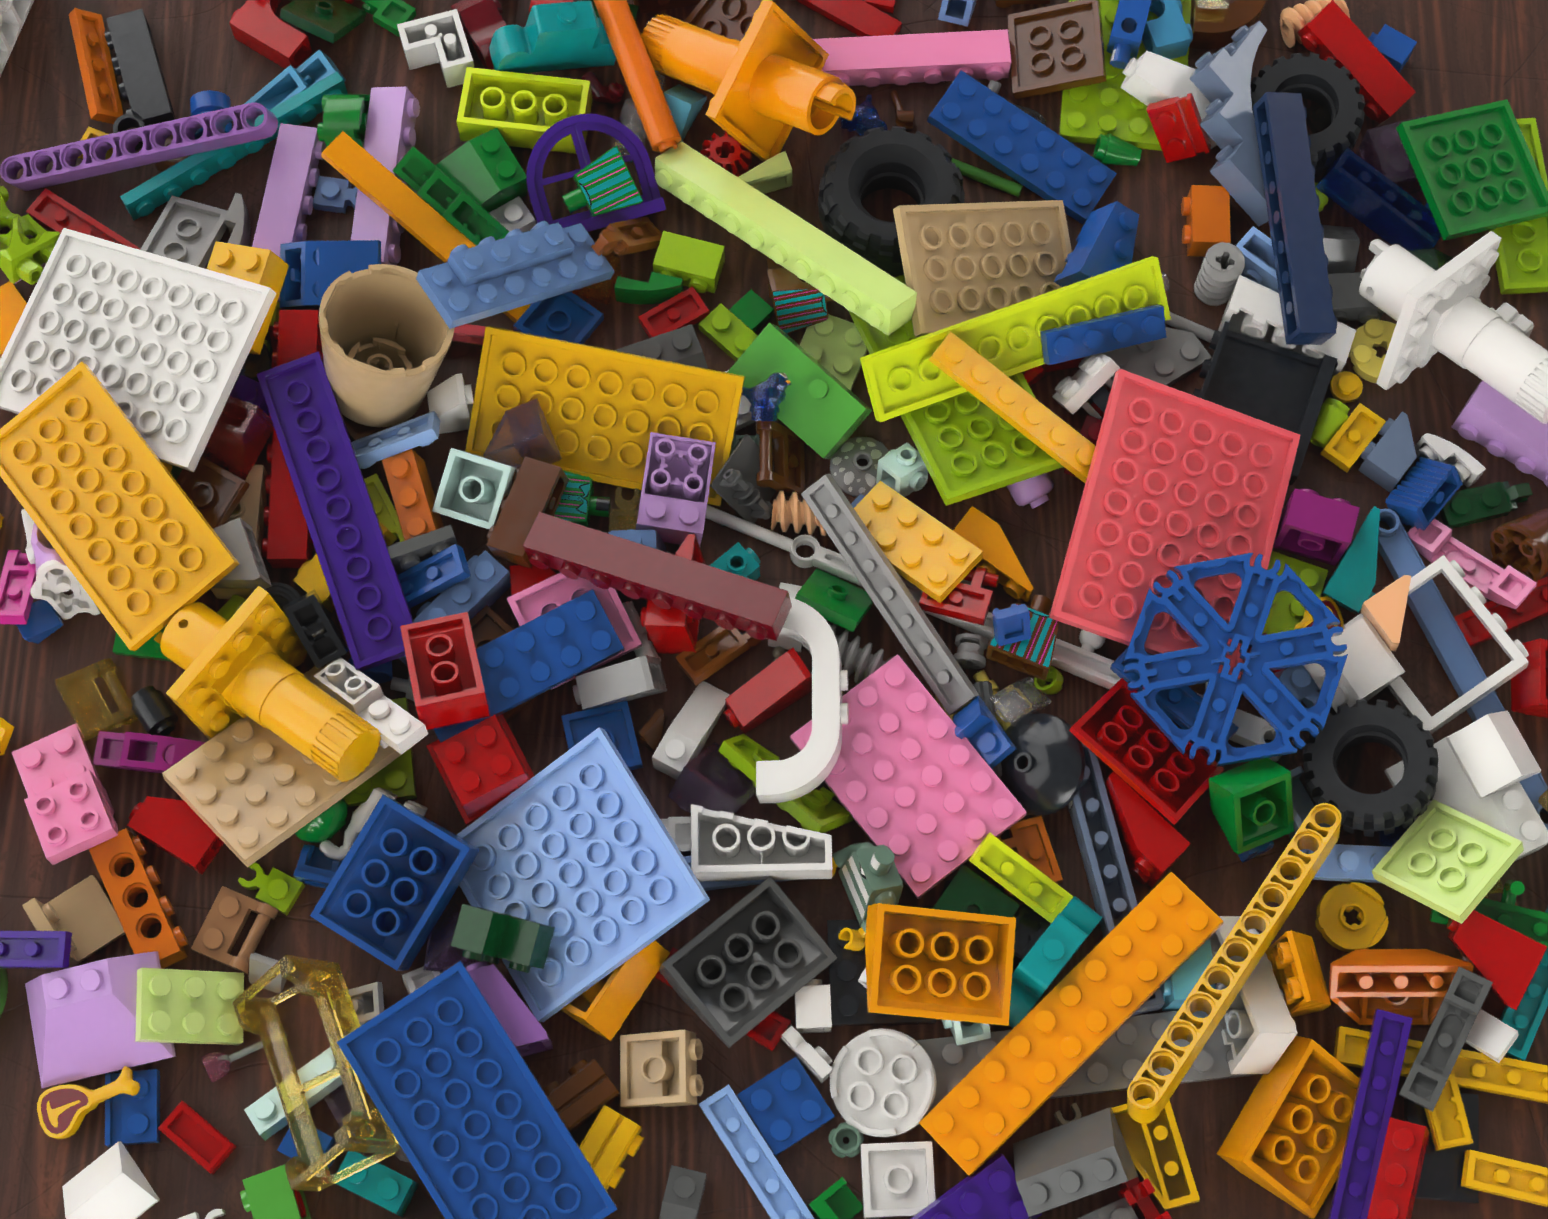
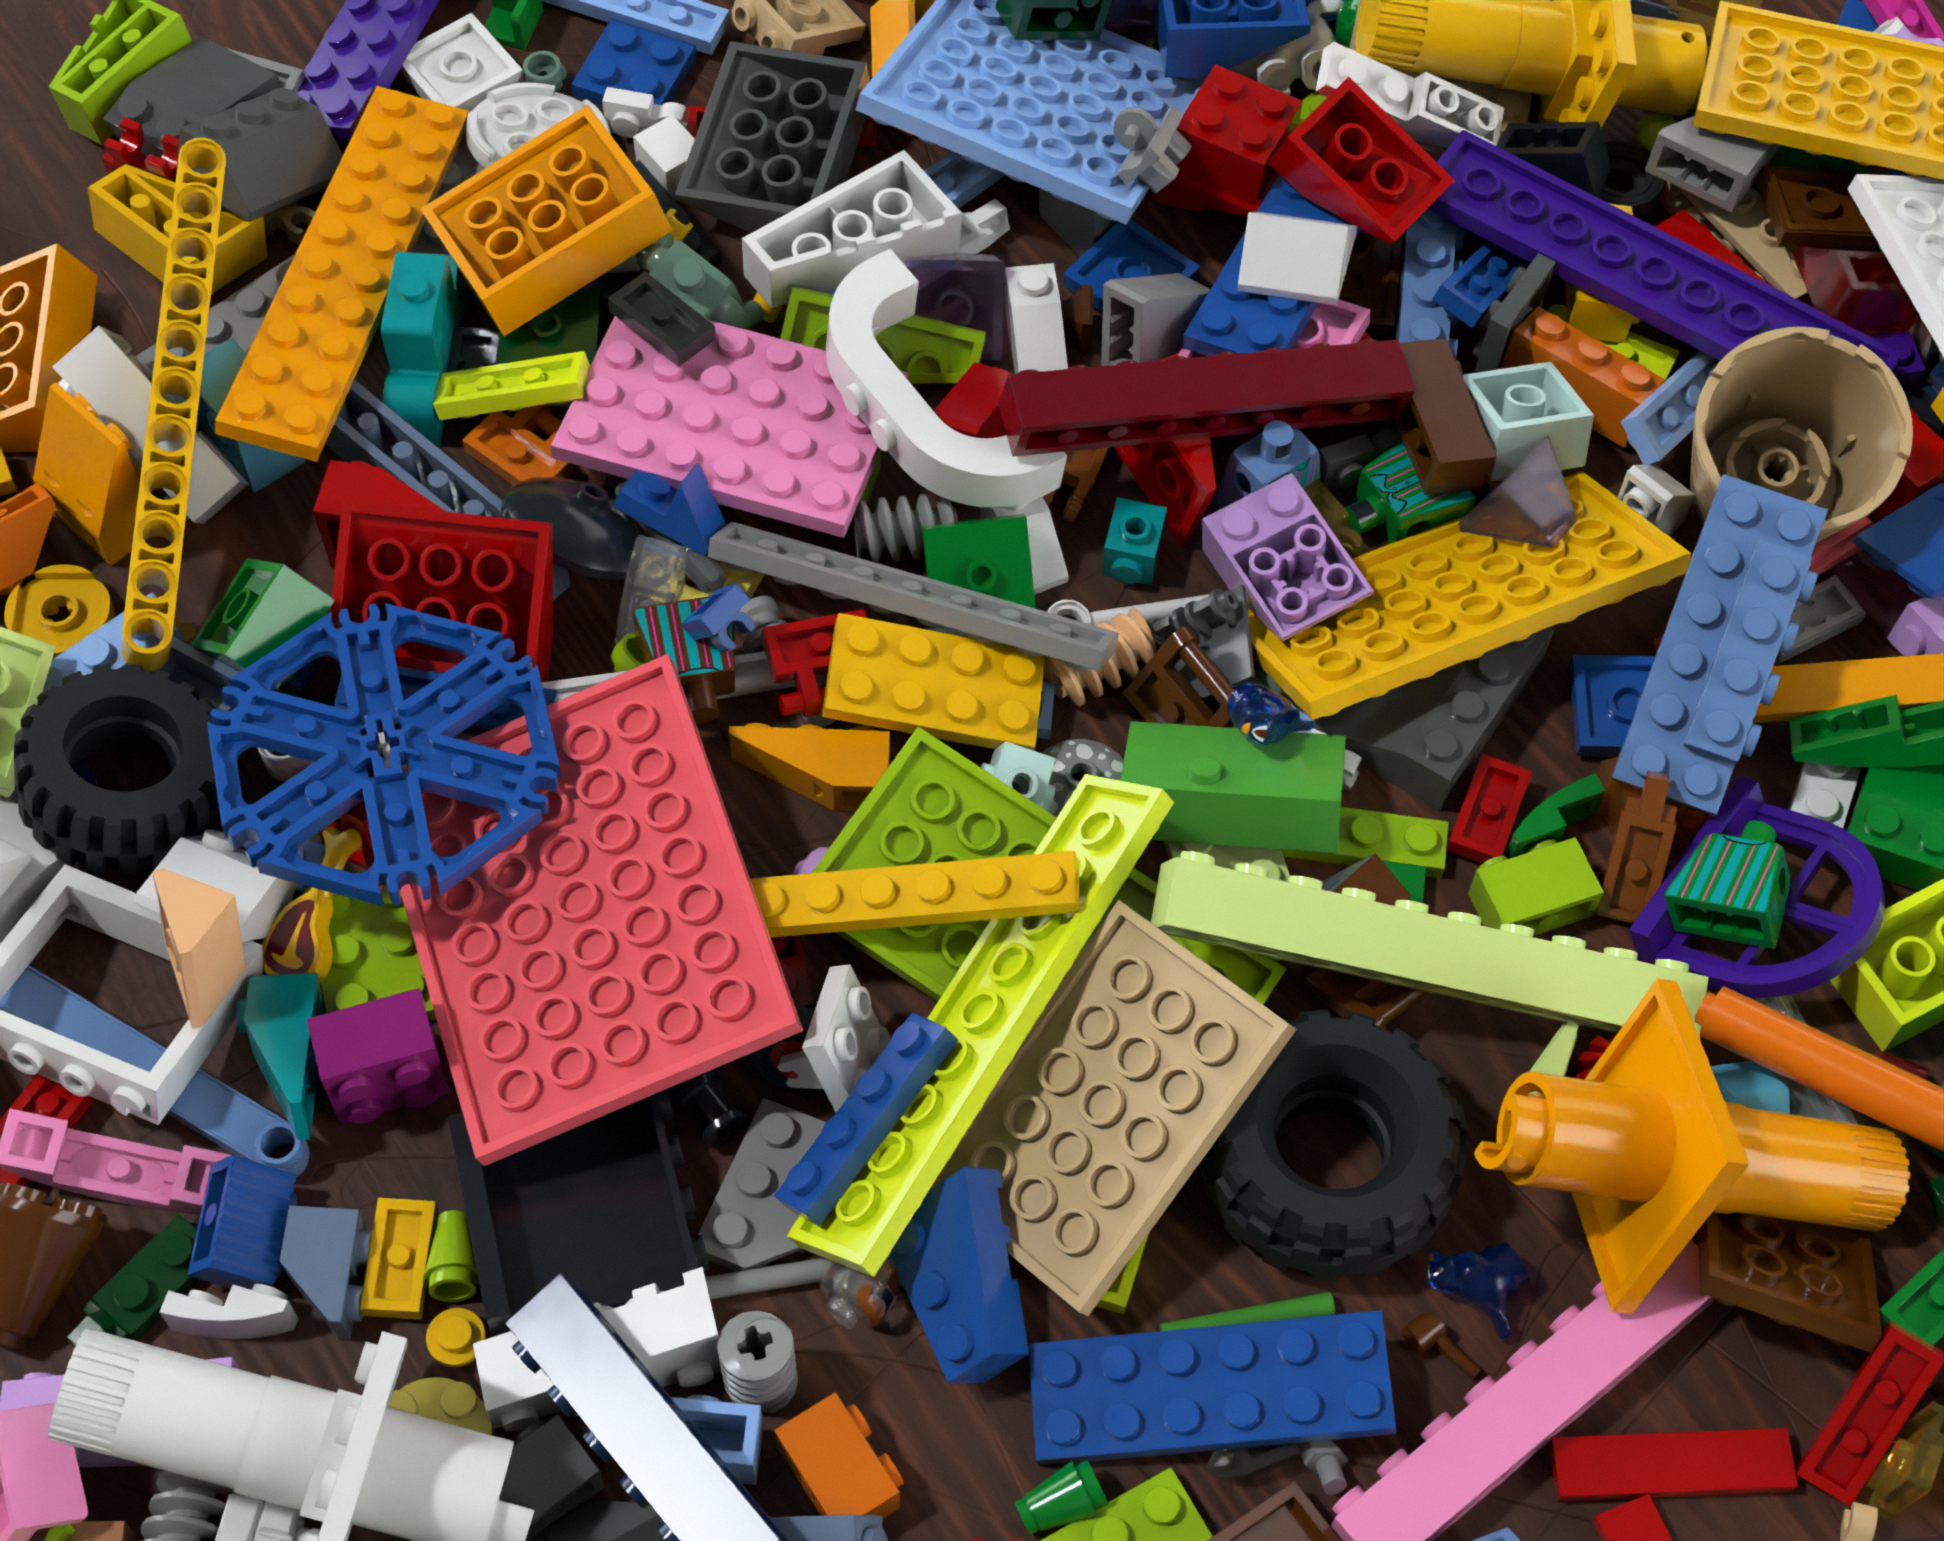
camera: 145 degrees right, 10 degrees down
(525, 642) = (1295, 257): none -> white slope
(552, 764) = (1152, 147): none -> light grey hips
(914, 846) = (662, 318): none -> pearl dark grey plate

